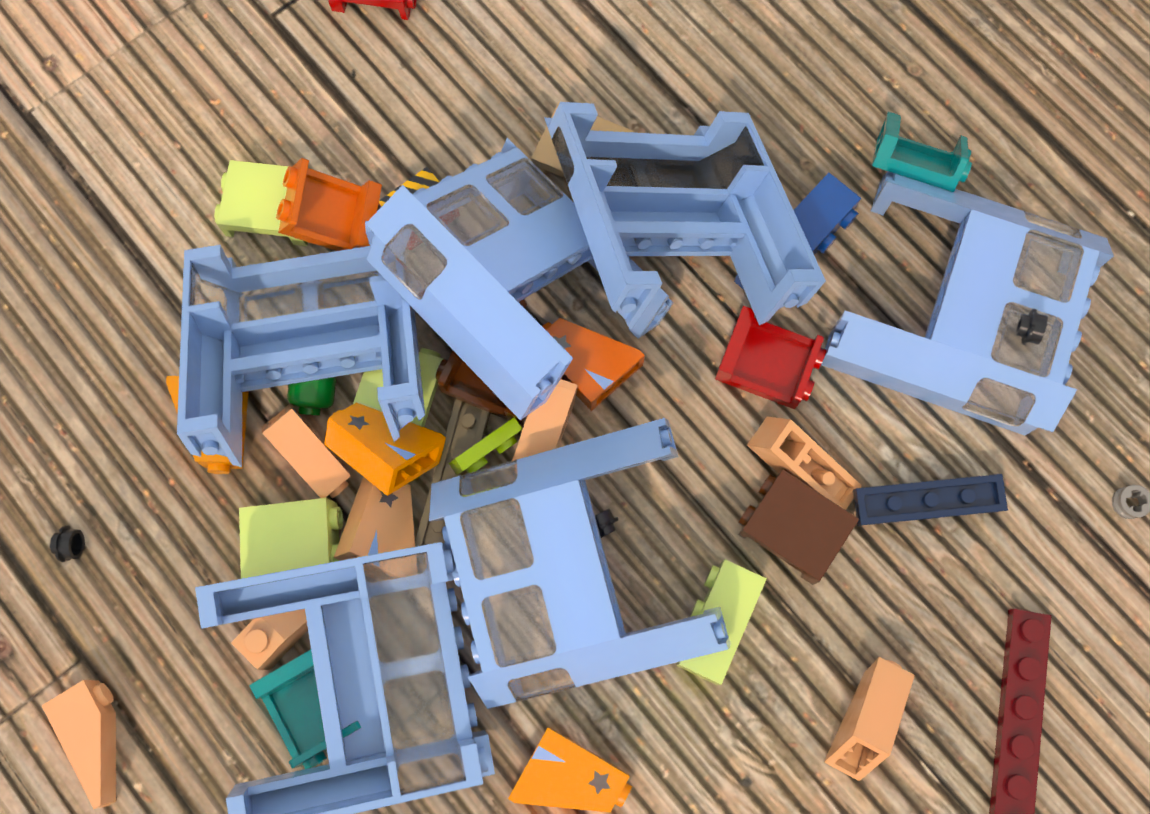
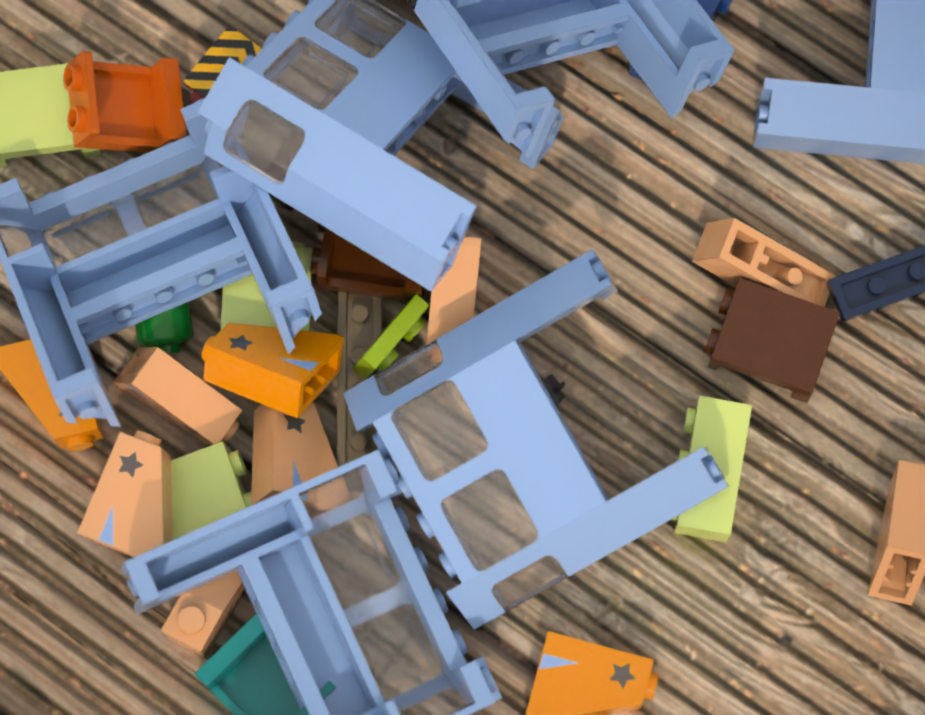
camera: 15 degrees left, 0 degrees up
(237, 528) = (132, 497): none -> light nougat slope
(597, 361) = (502, 208): orange slope -> none
(770, 361) = (694, 157): red panel -> none

